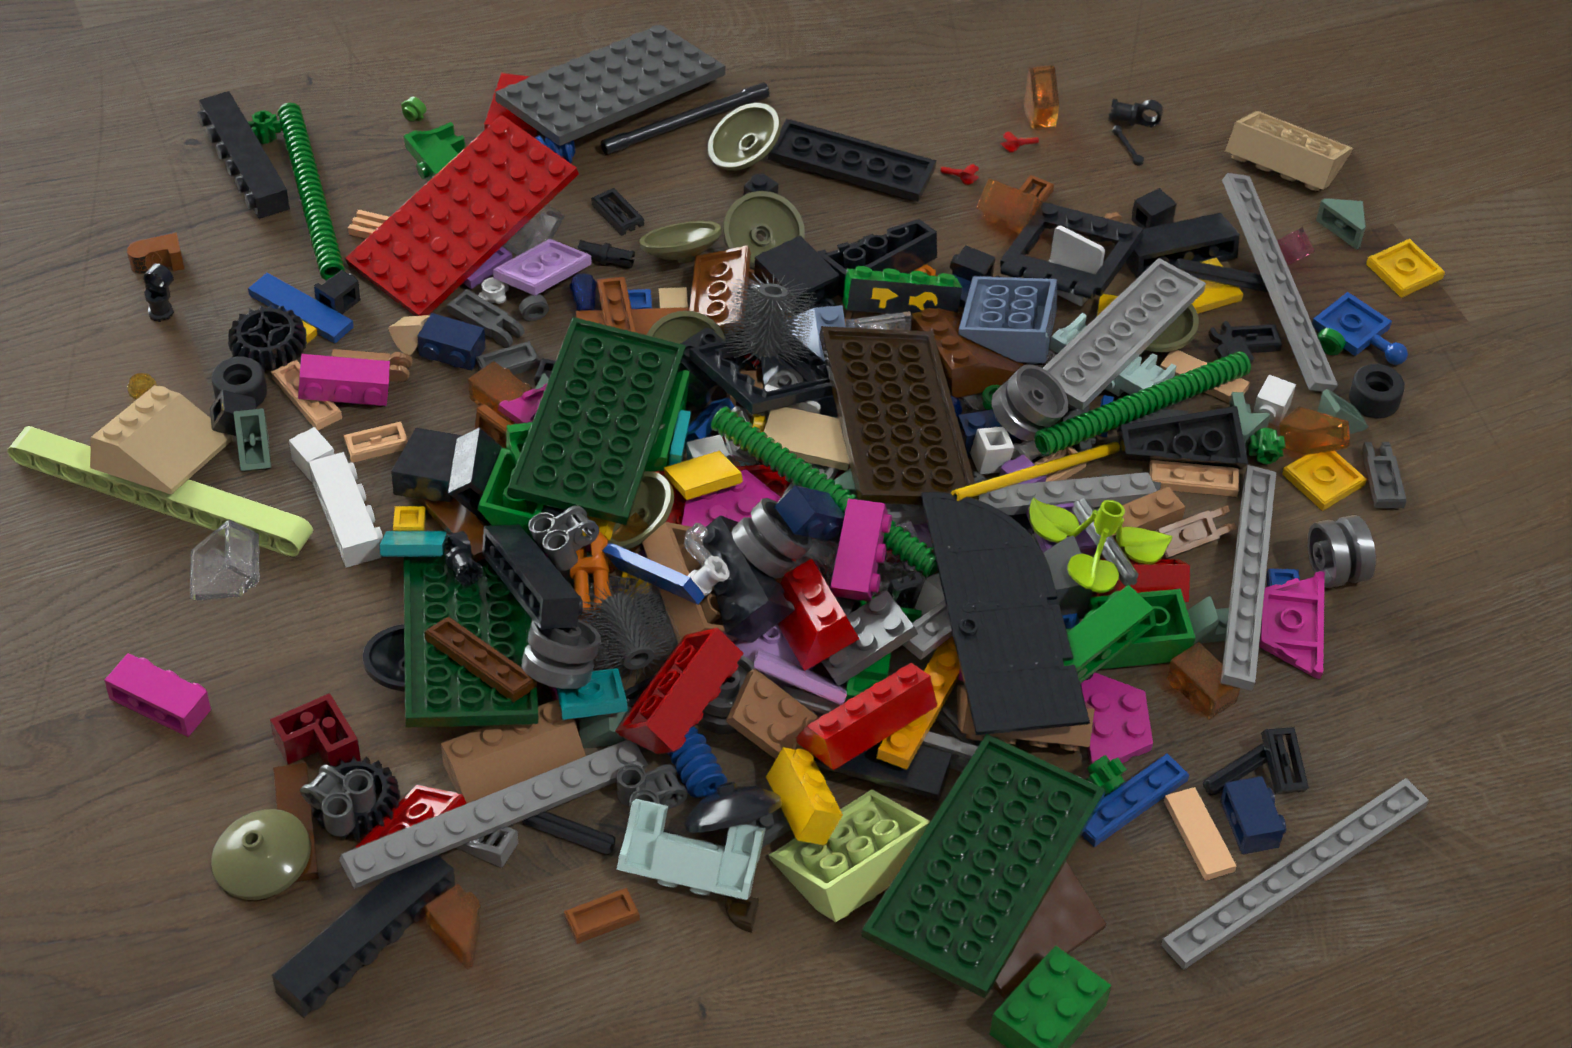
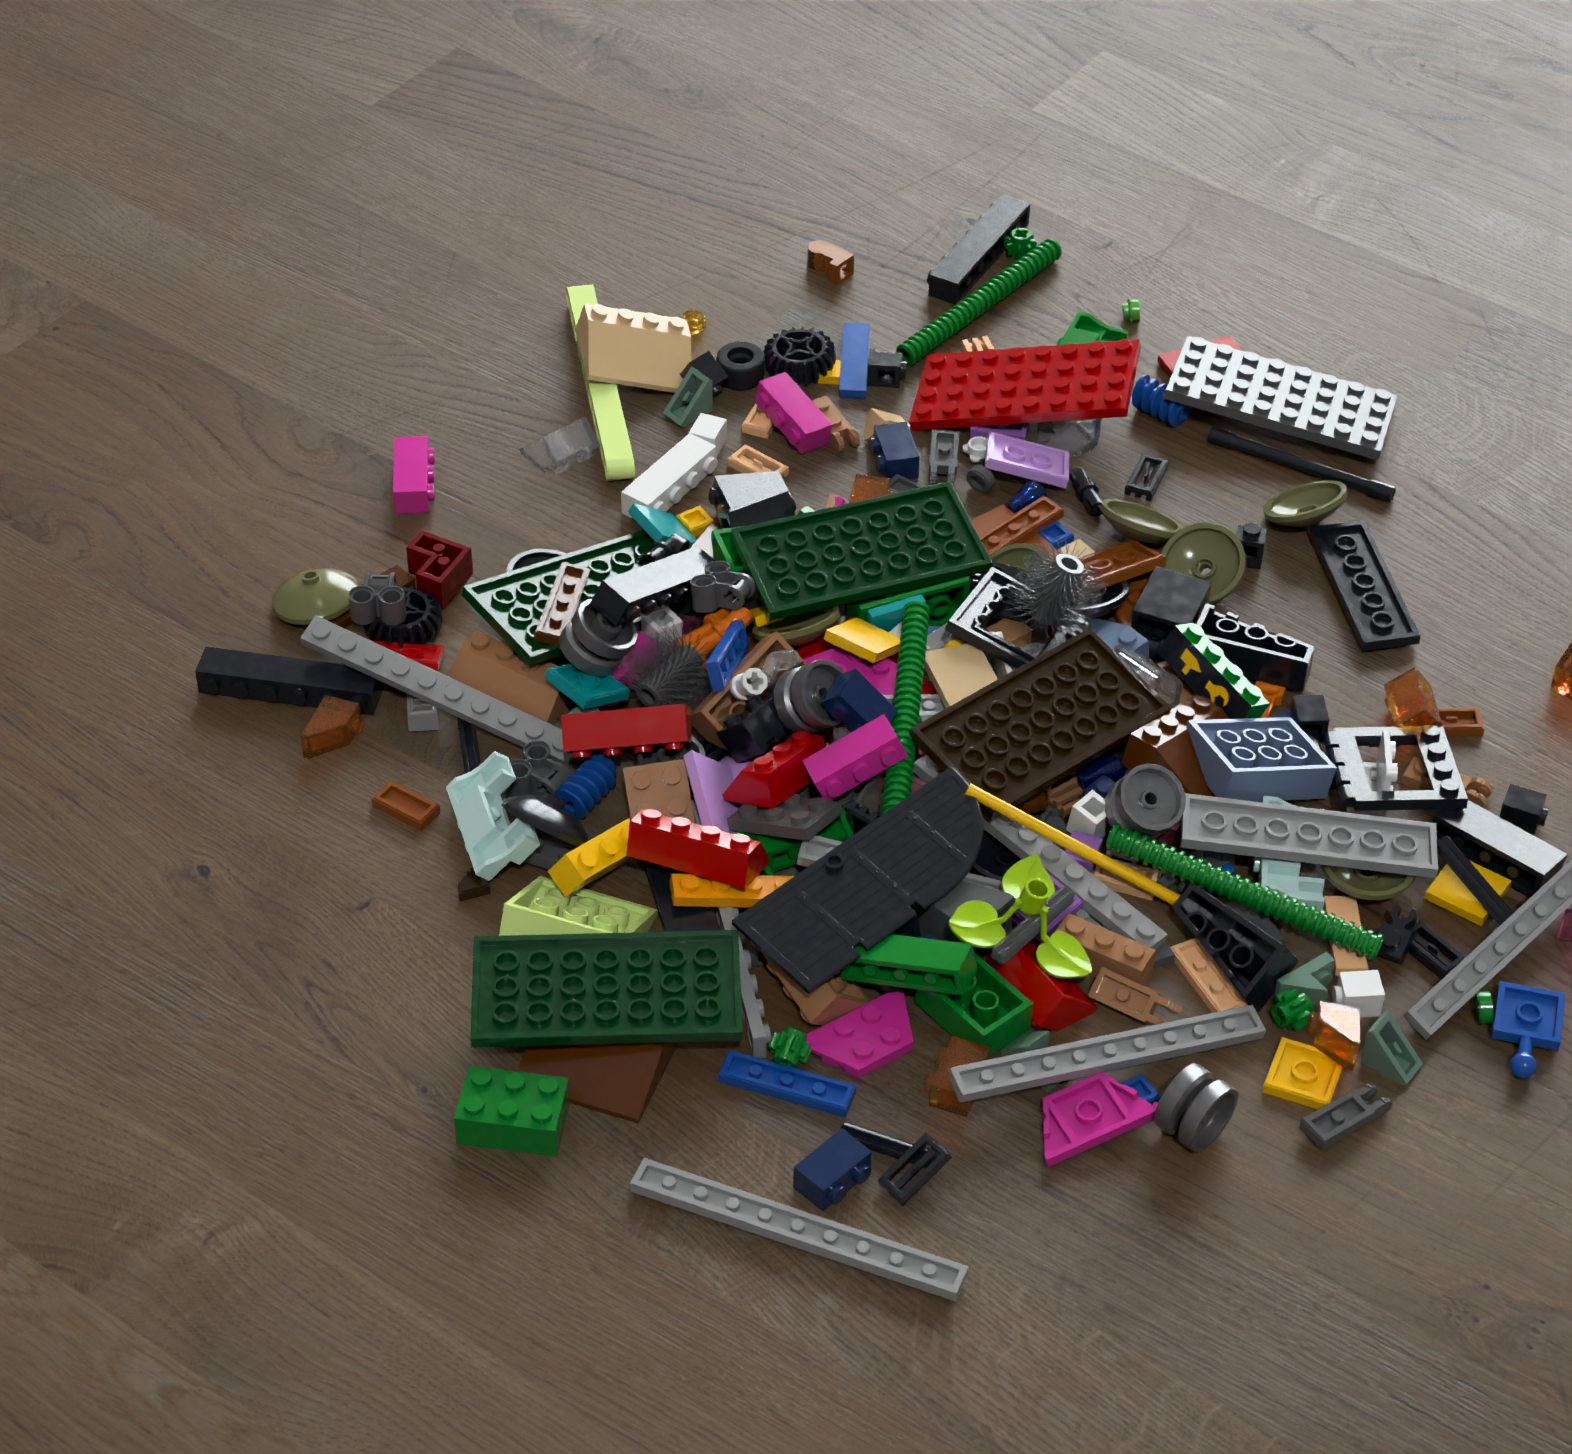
camera: 60 degrees right, 5 degrees down
(158, 292) = (782, 278): black connector -> none
(967, 175) = (1433, 667): red hand -> none
(1014, 143) = (1509, 680): red hand -> none
(1200, 833) = (787, 1145): light nougat tile -> none
(1376, 391) = (1448, 1082): black tyre -> none

